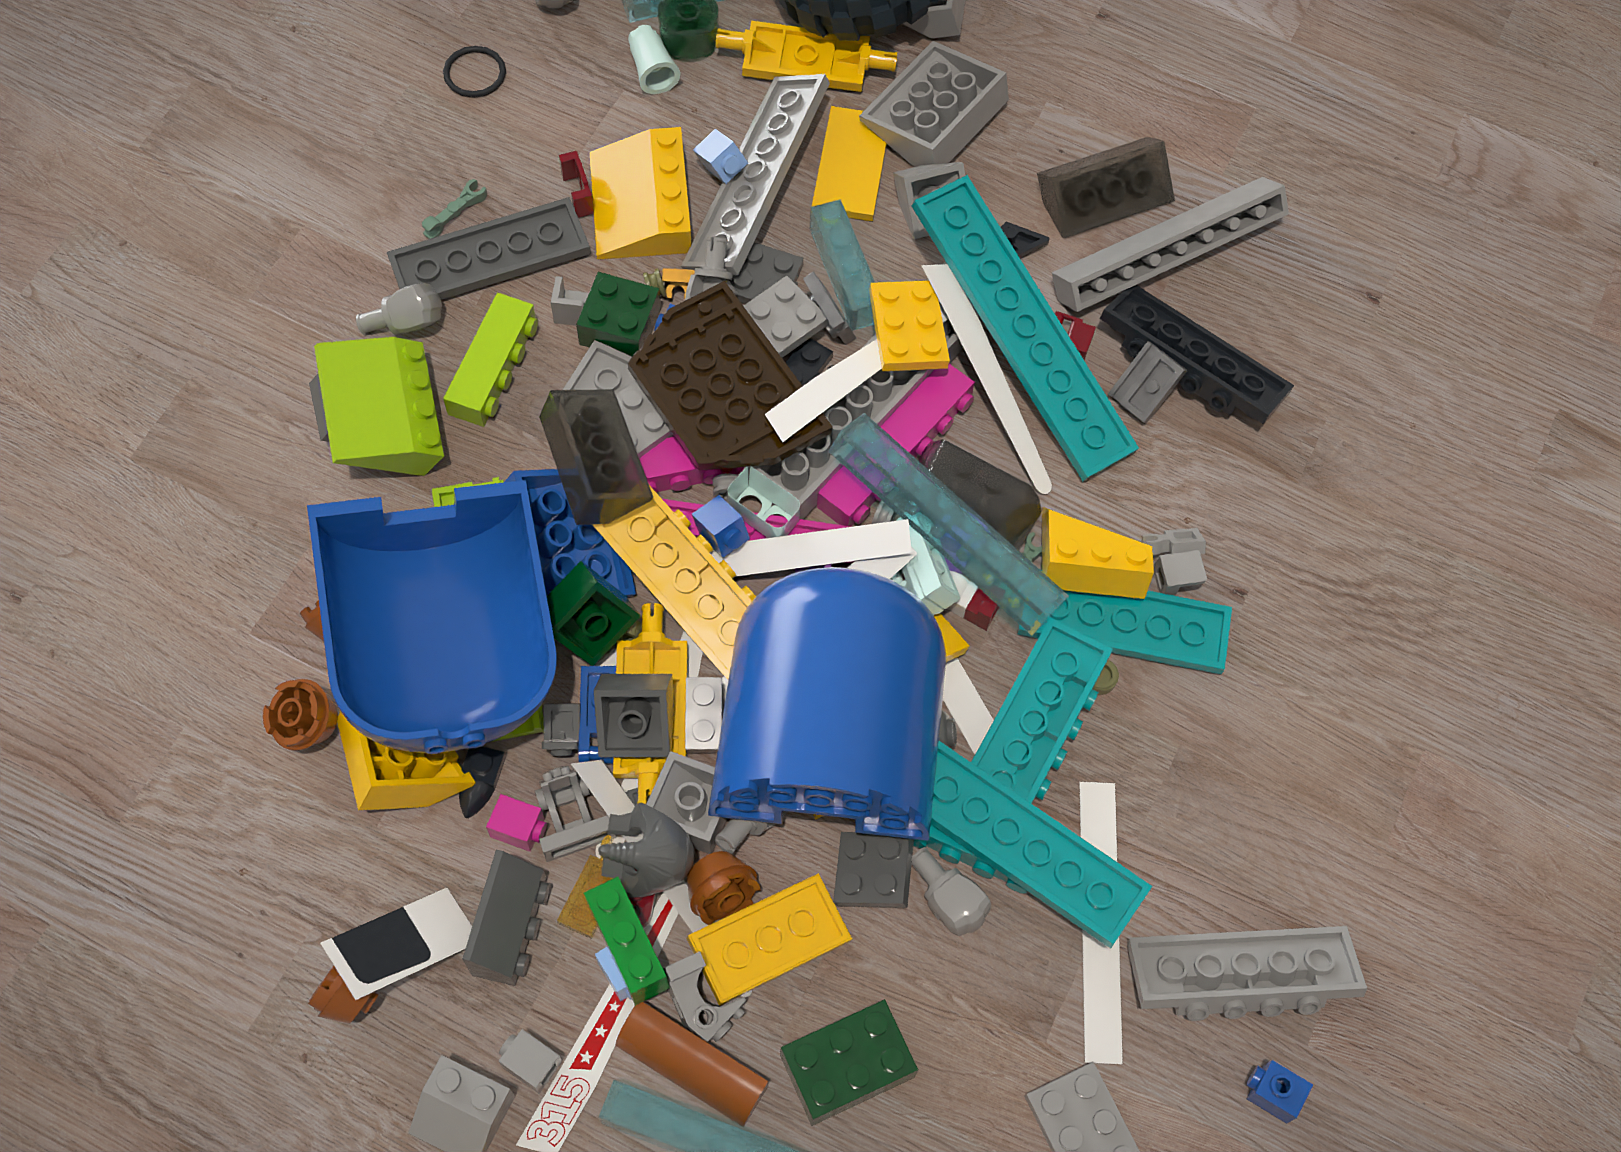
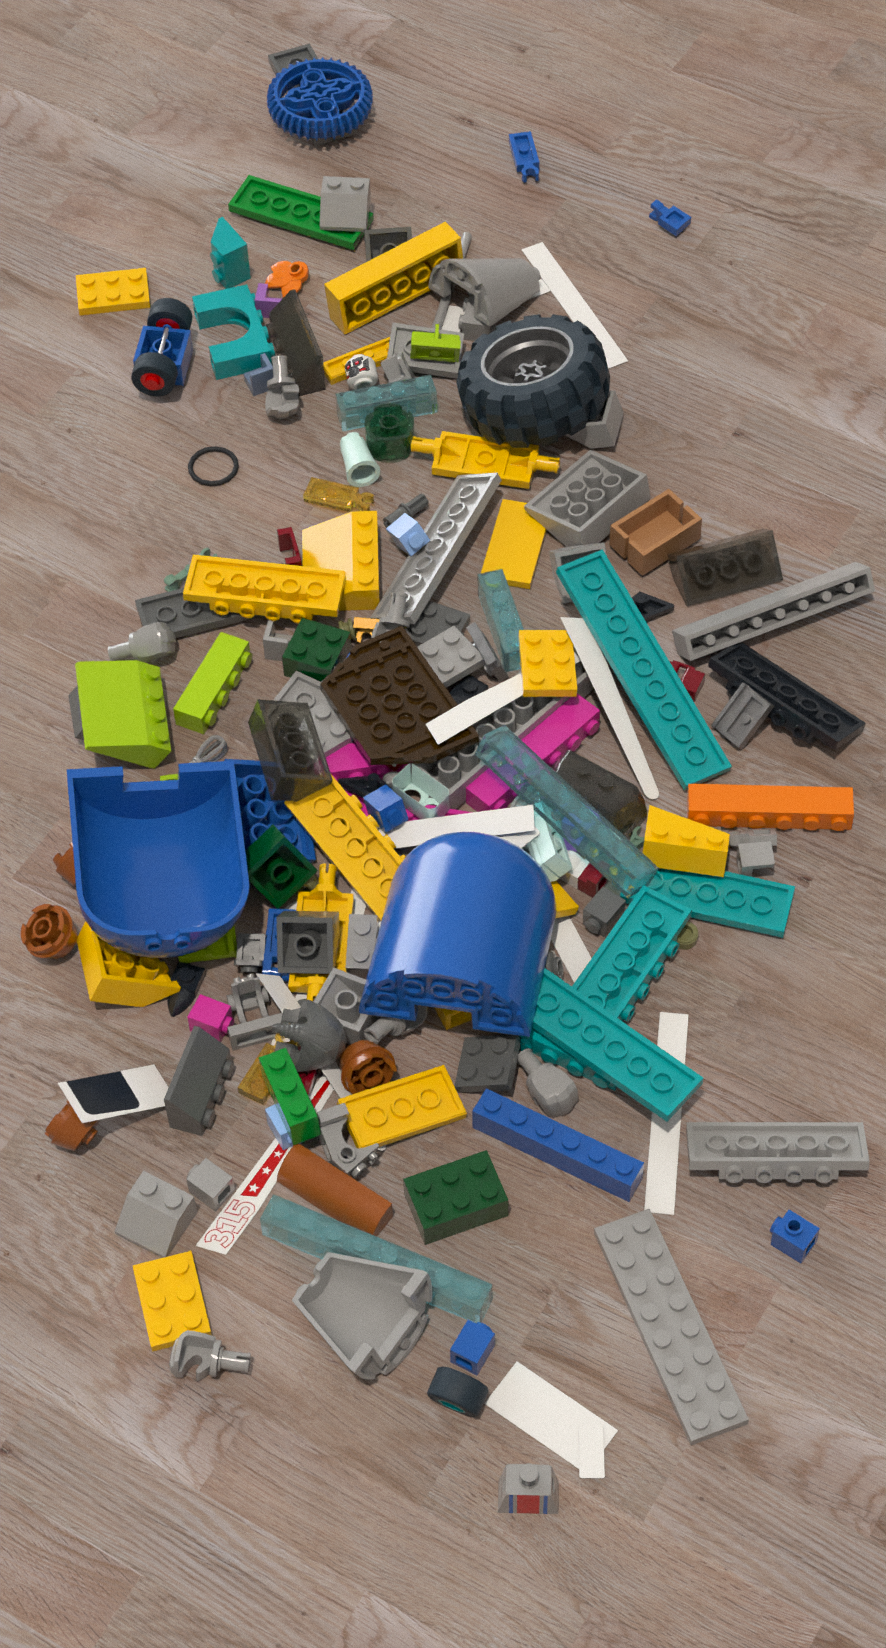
camera: 10 degrees right, 10 degrees down
(478, 466) = (201, 752): none -> light grey piece
(547, 233) = (264, 588): none -> yellow plate
(629, 107) = (336, 495): none -> clear yellow plate
(691, 493) = (362, 785): none -> black piece
(719, 121) = (410, 509): none -> dark grey axle
(972, 980) = (557, 1145): none -> blue brick
(1000, 652) = (603, 912): none -> dark grey brick
(1019, 146) = (655, 531): none -> medium nougat piece
(1191, 501) = (771, 806): none -> orange brick

